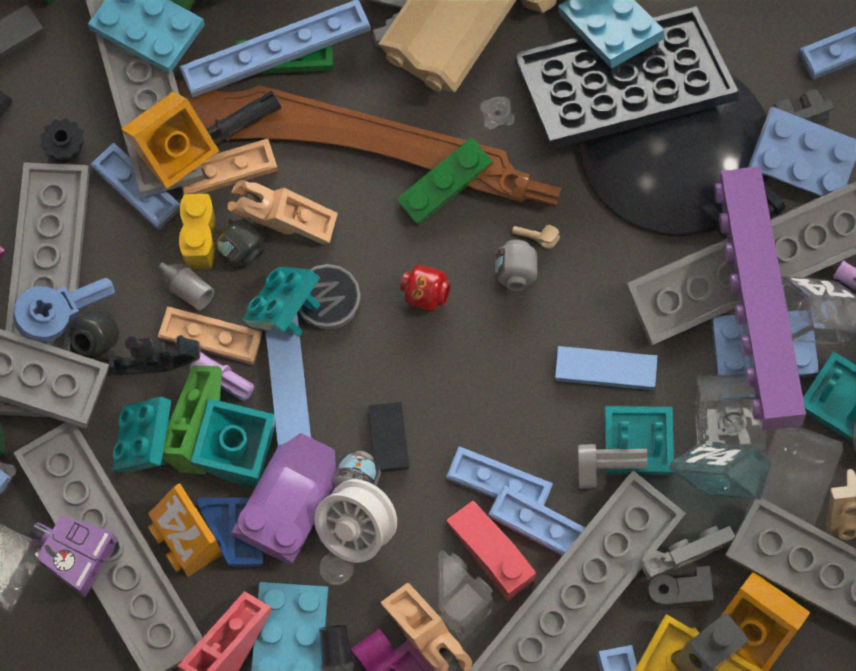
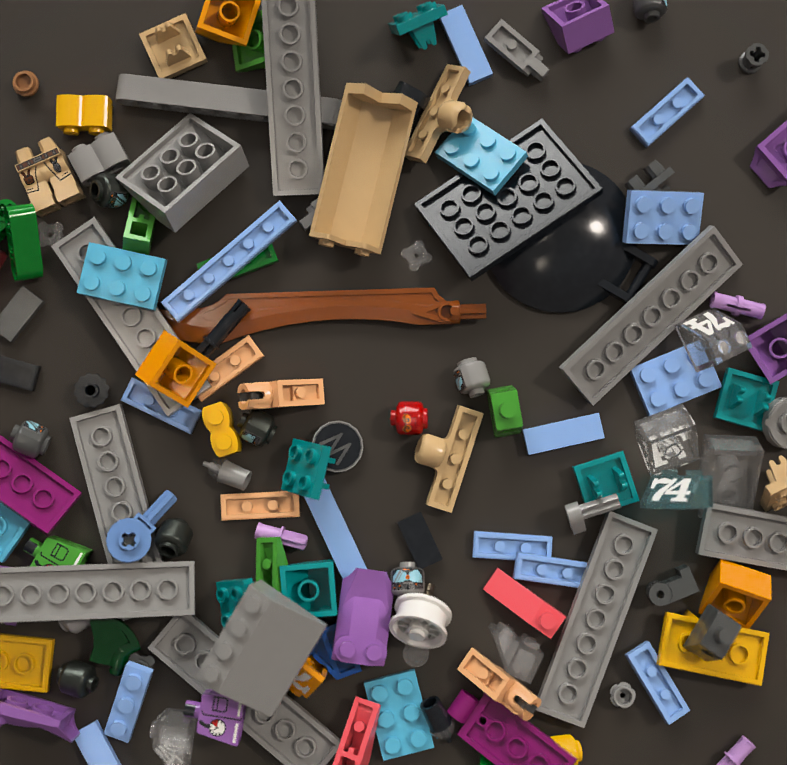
camera: 15 degrees left, 15 degrees up
(152, 357) = (225, 540): black piece -> none
(152, 475) = (261, 649): none -> light grey slope
(445, 181) = (396, 327): green plate -> none
(457, 348) = (449, 457): none -> tan plate
(543, 315) = (505, 411): none -> bright green torso
(546, 239) = (486, 345): tan hand -> none
(685, 552) = (669, 559): light grey hinge -> none
(760, 298) = (669, 353): medium lavender brick -> none

